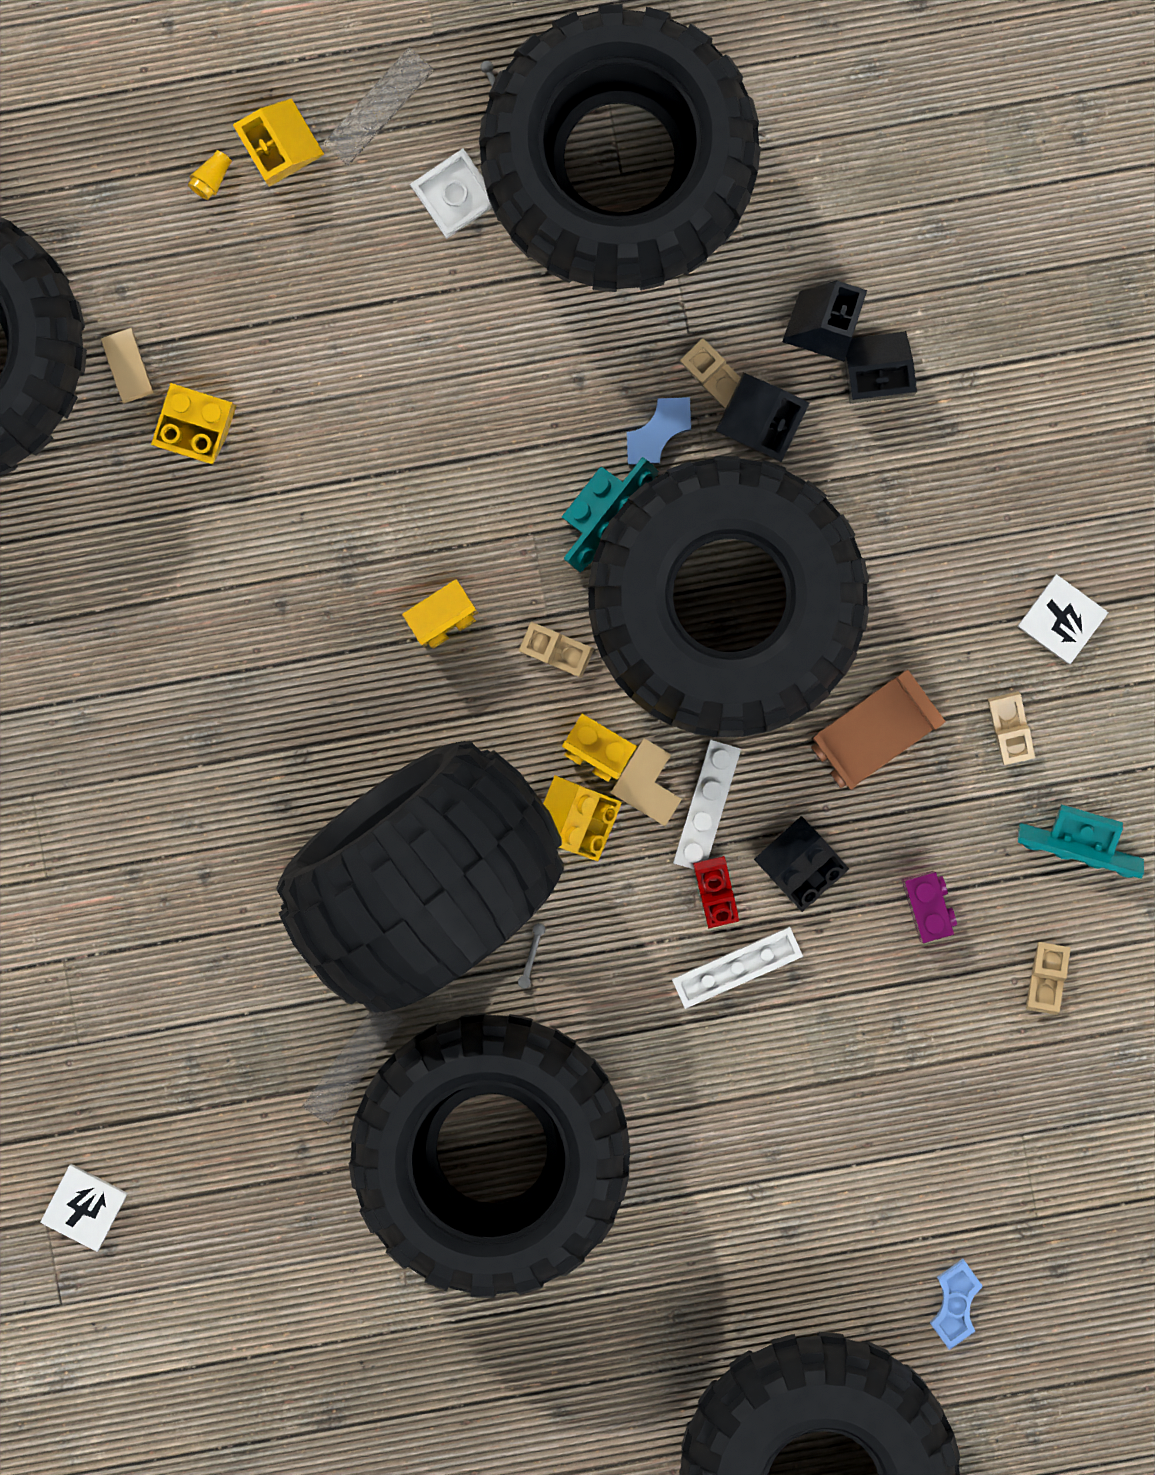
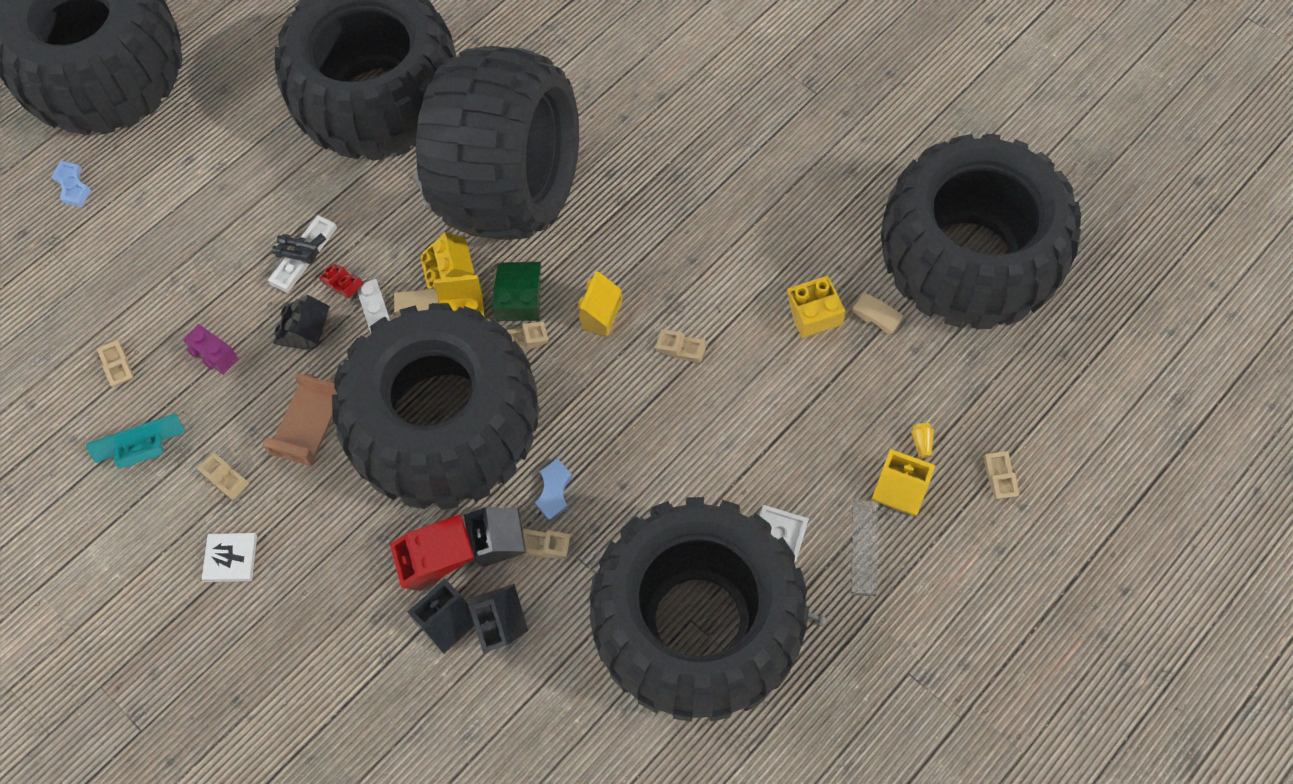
camera: 145 degrees right, 25 degrees down
(161, 73) = (1000, 475): none -> tan slope
(384, 499) = (676, 345): none -> tan slope
(517, 716) = (517, 291): none -> dark green slope
(598, 505) = (555, 424): teal bracket -> none
(734, 960) = (303, 250): none -> black piece
(845, 443) = (431, 552): none -> red slope

